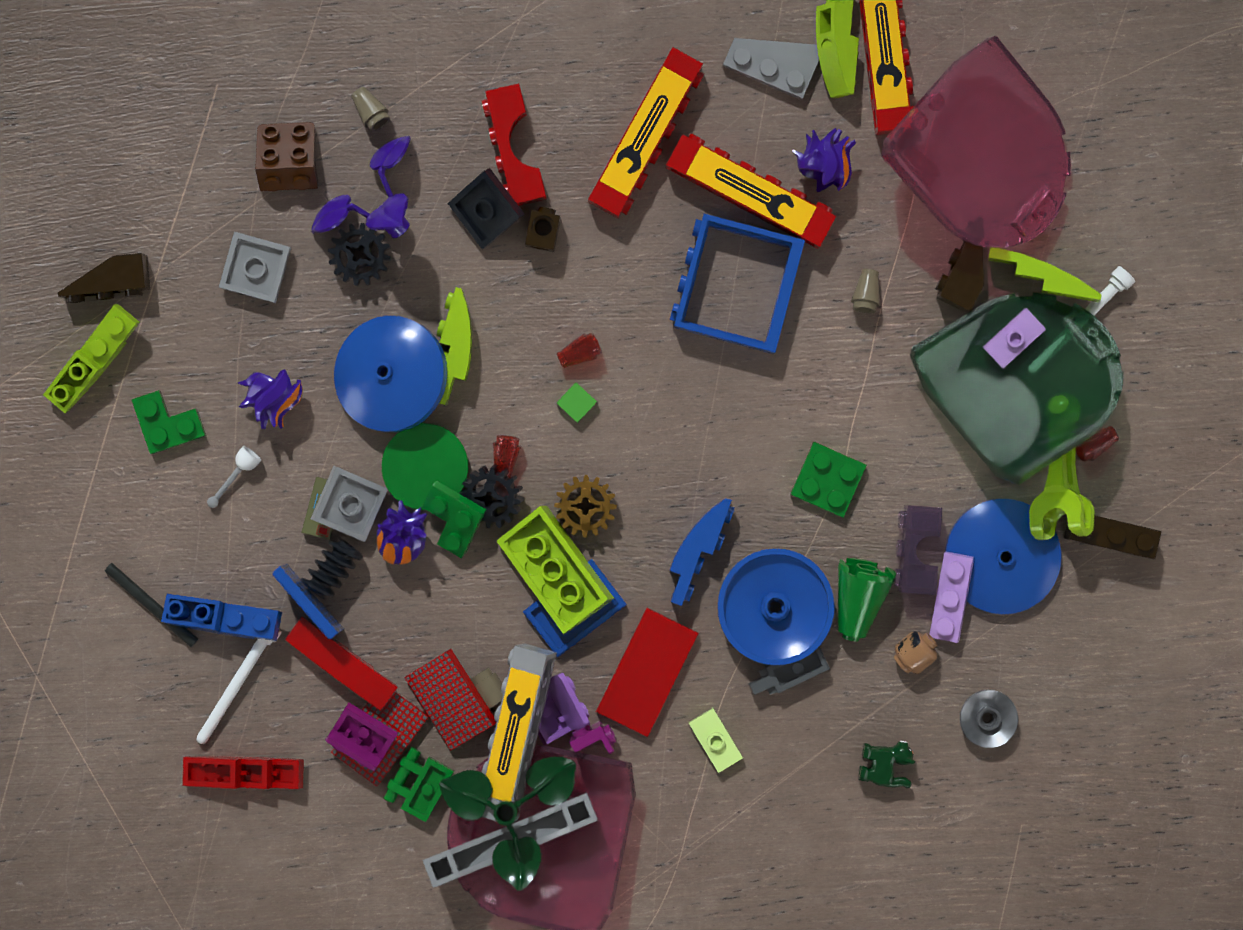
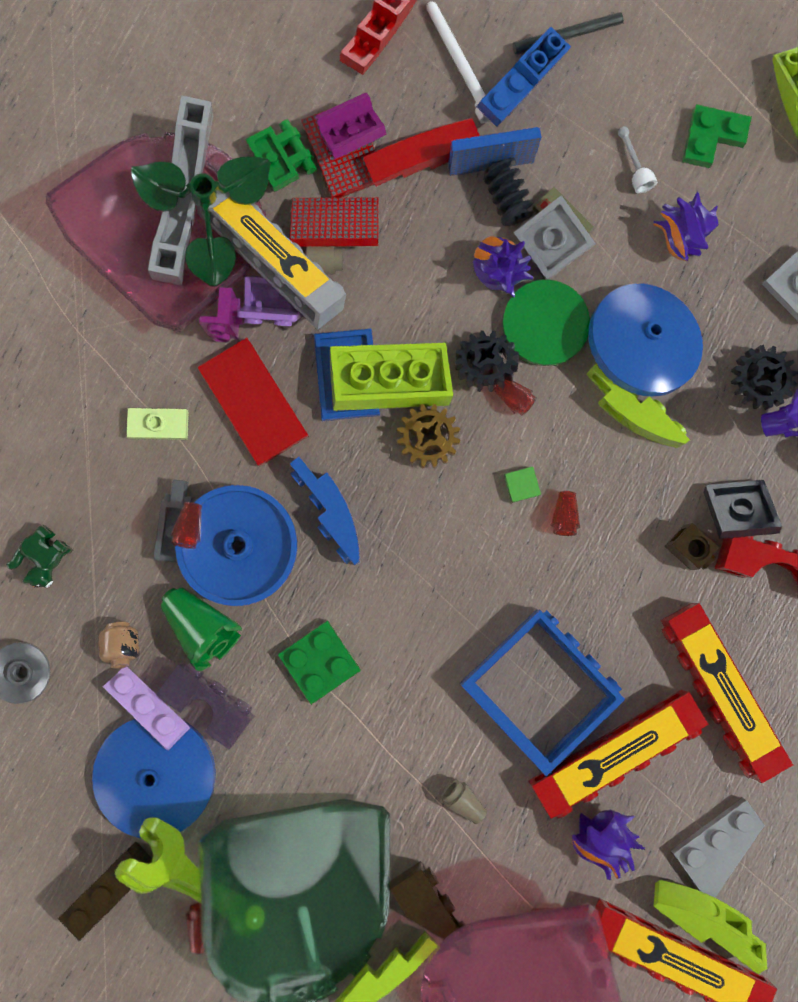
camera: 120 degrees right, 5 degrees down
(460, 514) = (487, 323): green plate -> none
(785, 653) = (187, 528): none -> clear red cone
(1014, 338) = (340, 913): lavender plate -> none

